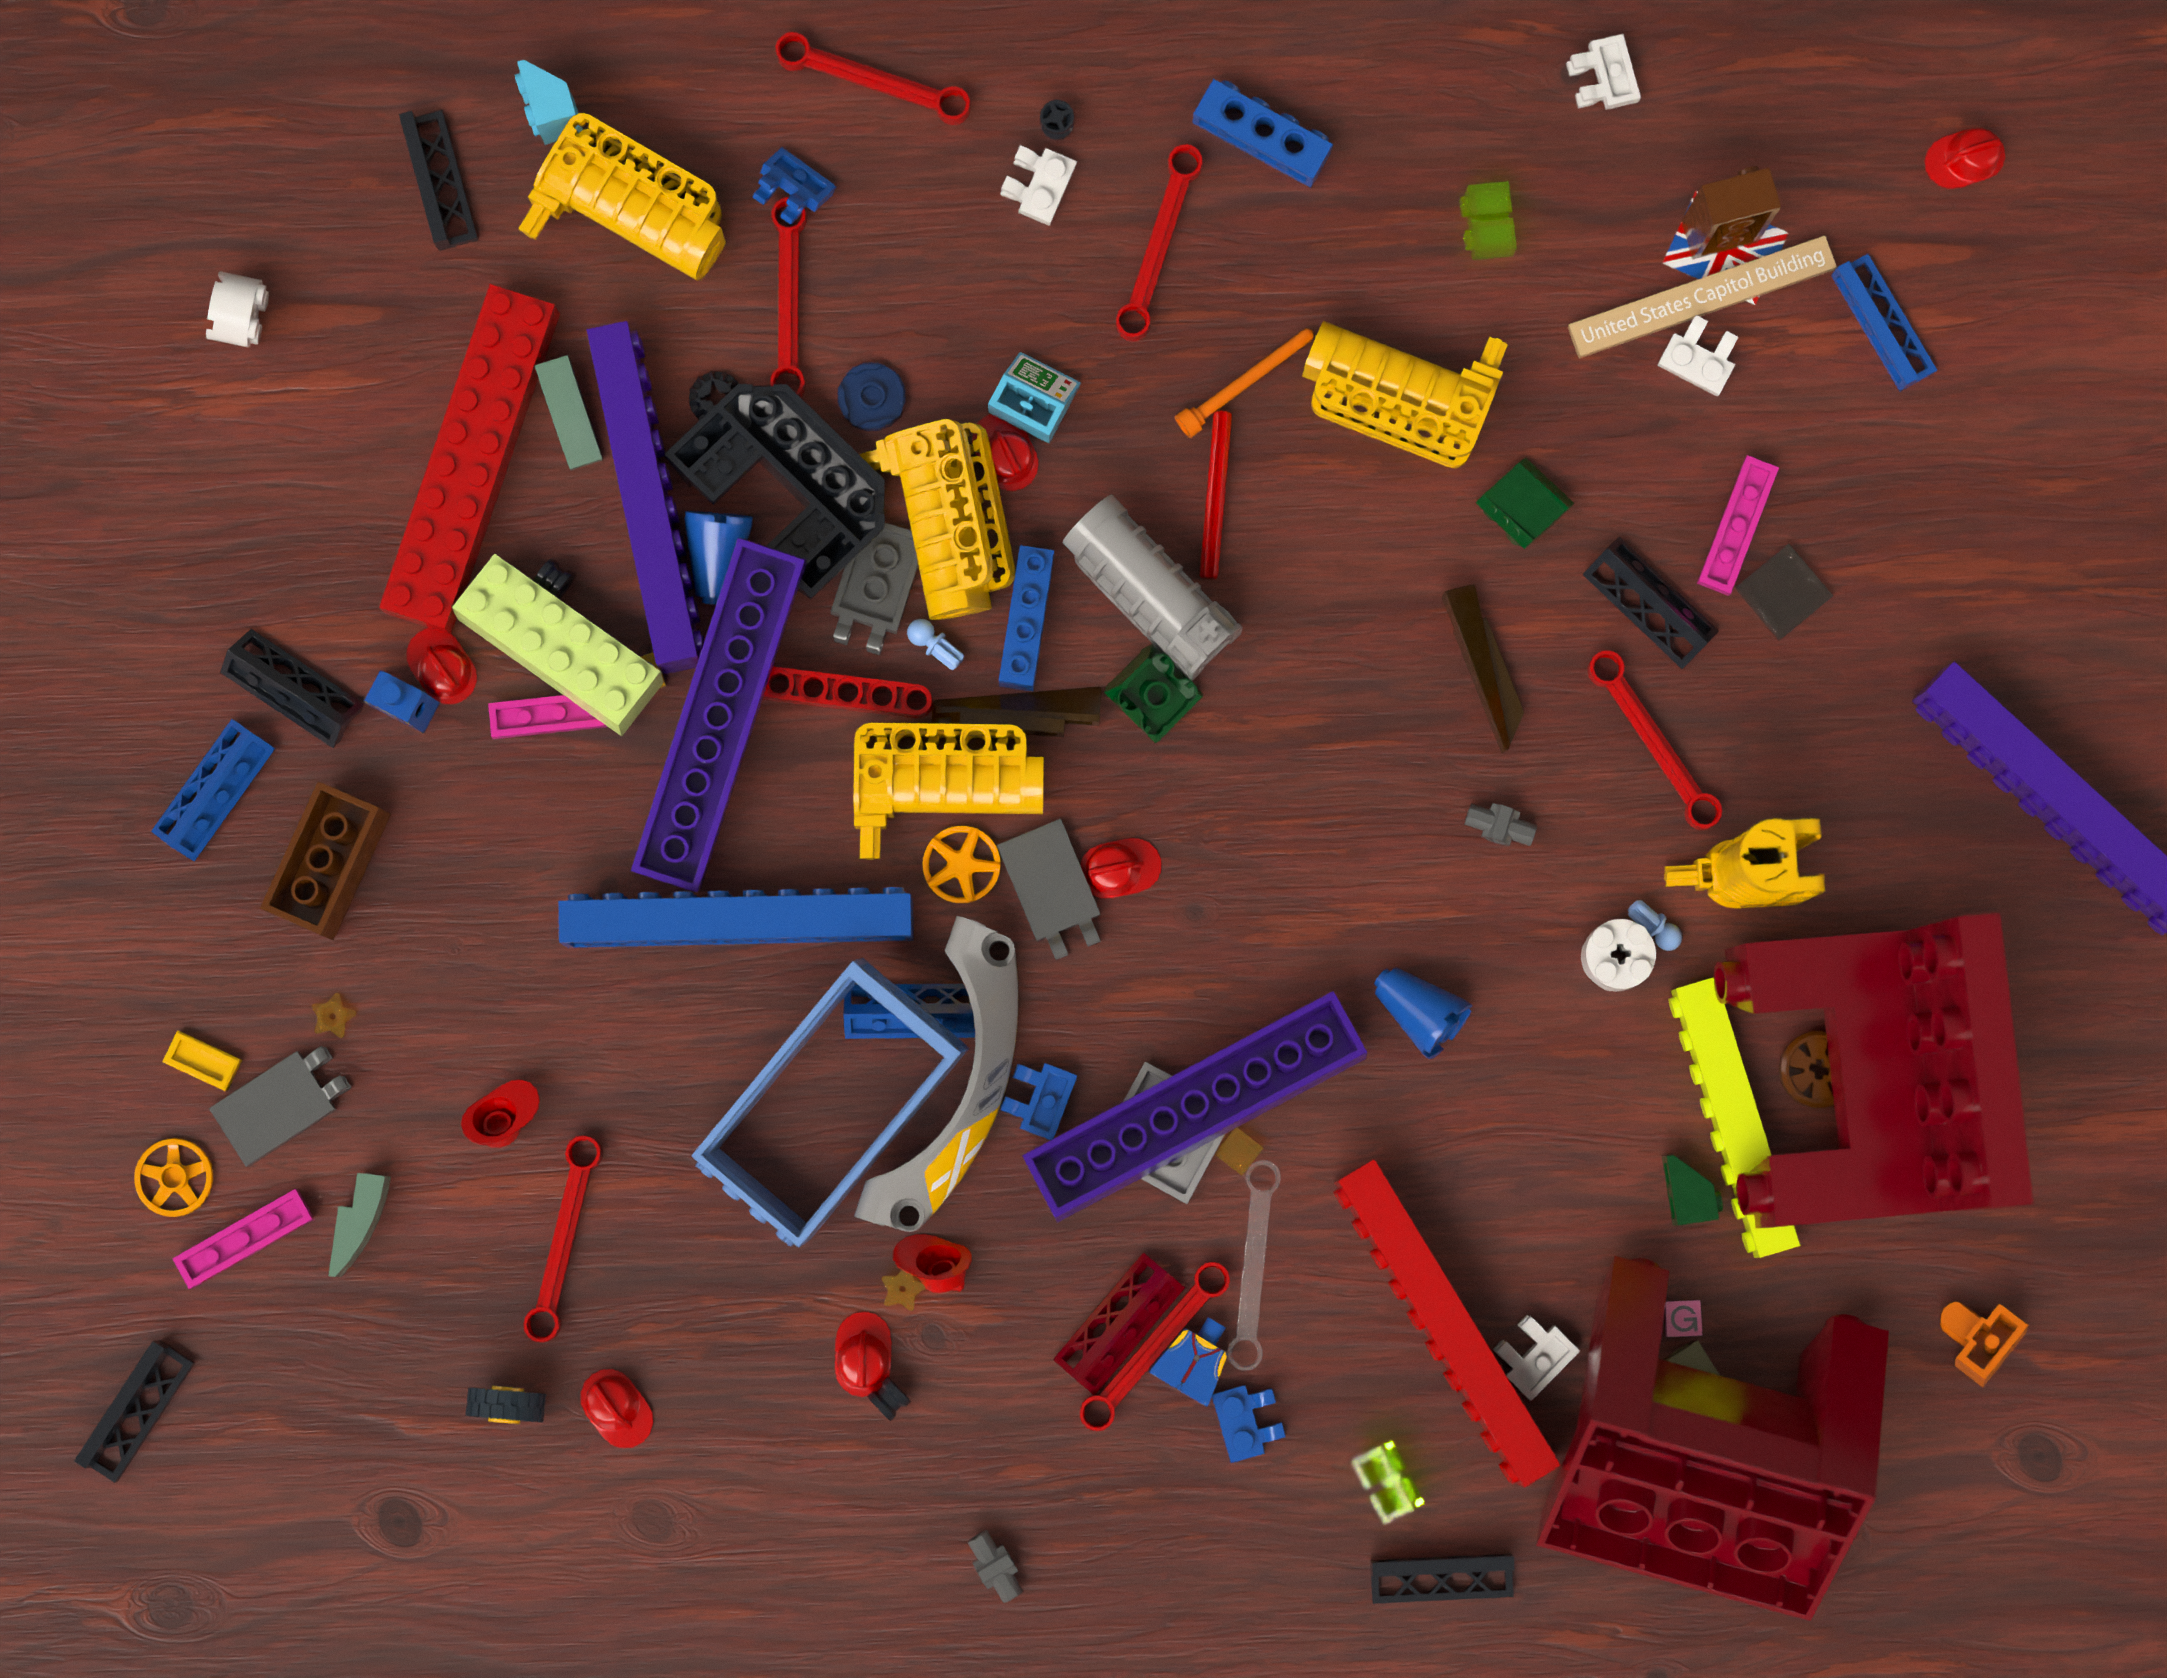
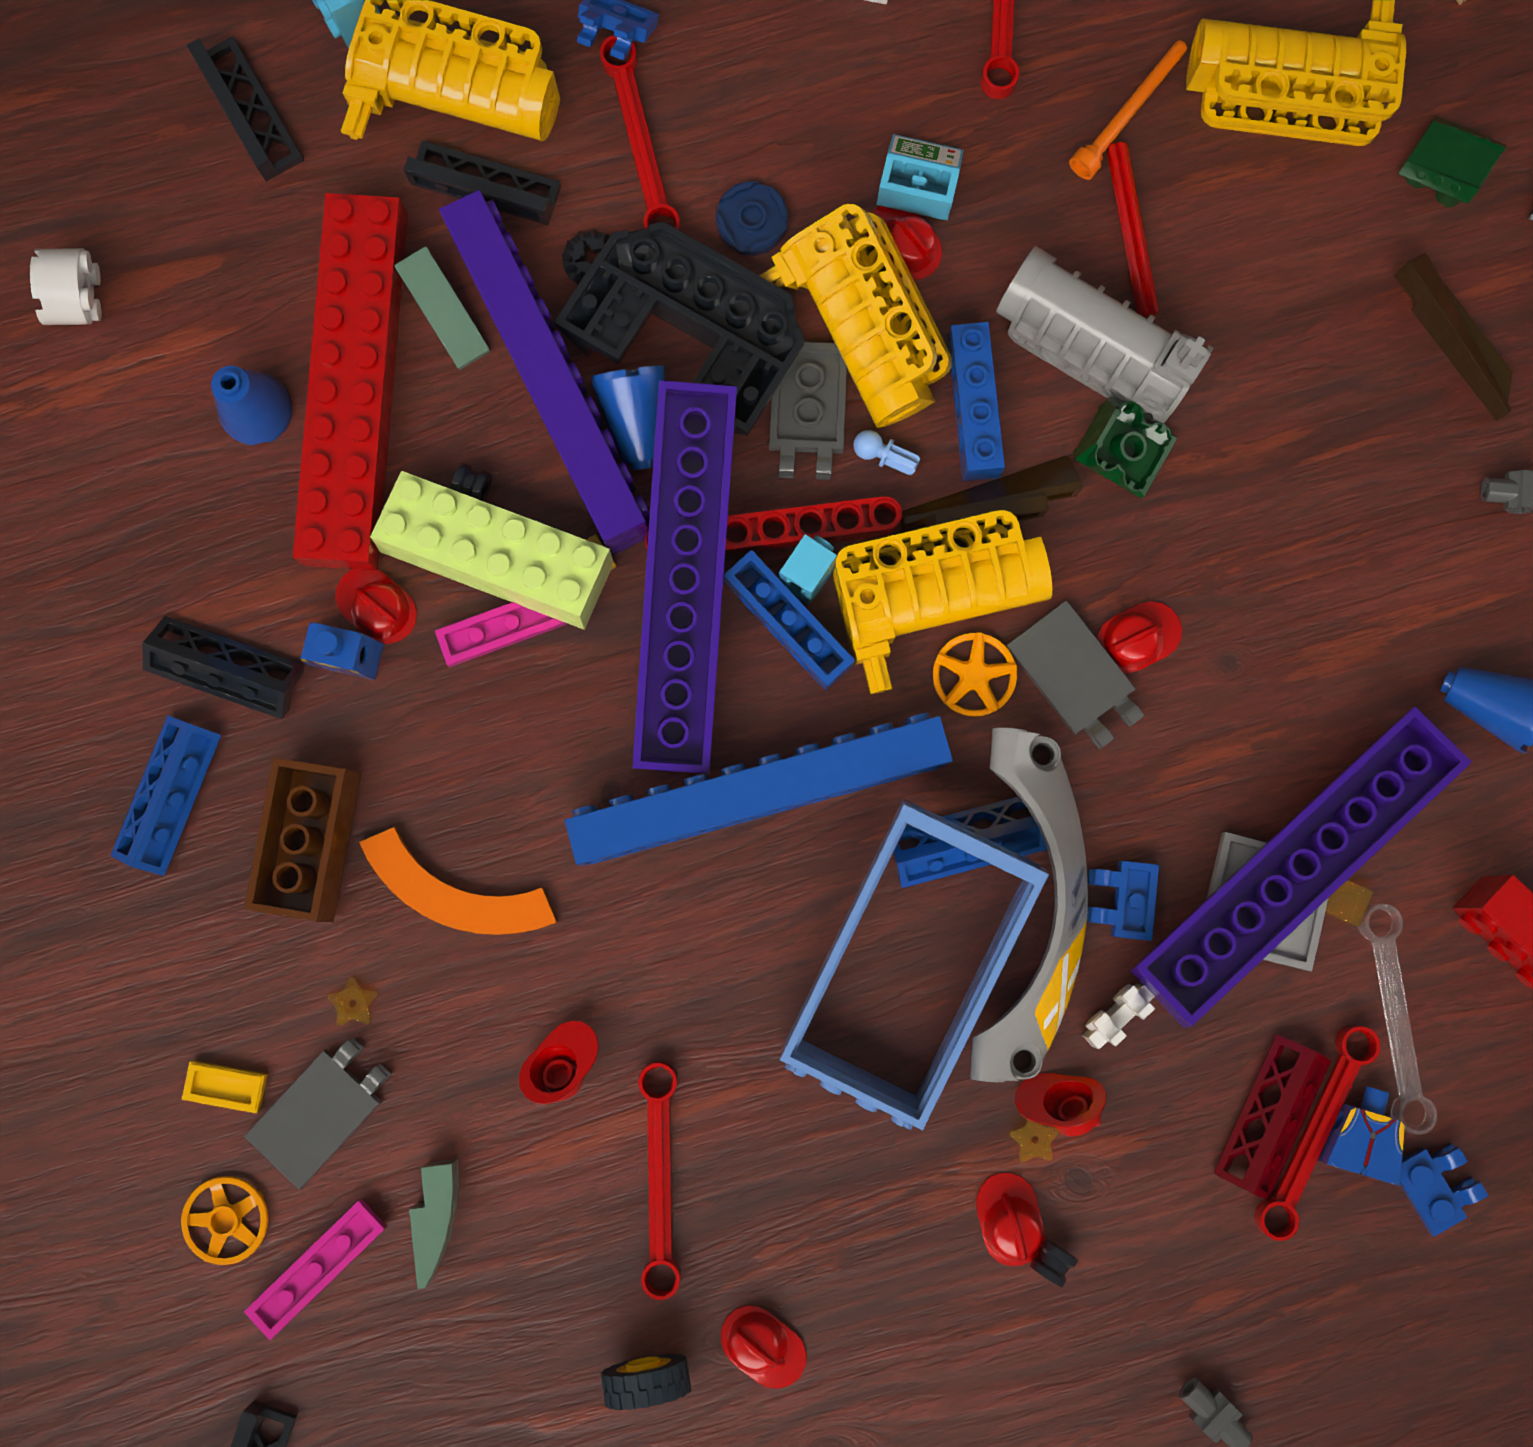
camera: 15 degrees left, 0 degrees up
(376, 459) = (251, 404): none -> blue cone
(437, 949) = (448, 904): none -> orange tile
(628, 310) = (458, 184): none -> black fence
(805, 774) = (788, 620): none -> blue brick
(833, 732) = (808, 568): none -> medium azure brick
(1017, 1190) = (1107, 1026): none -> white plate

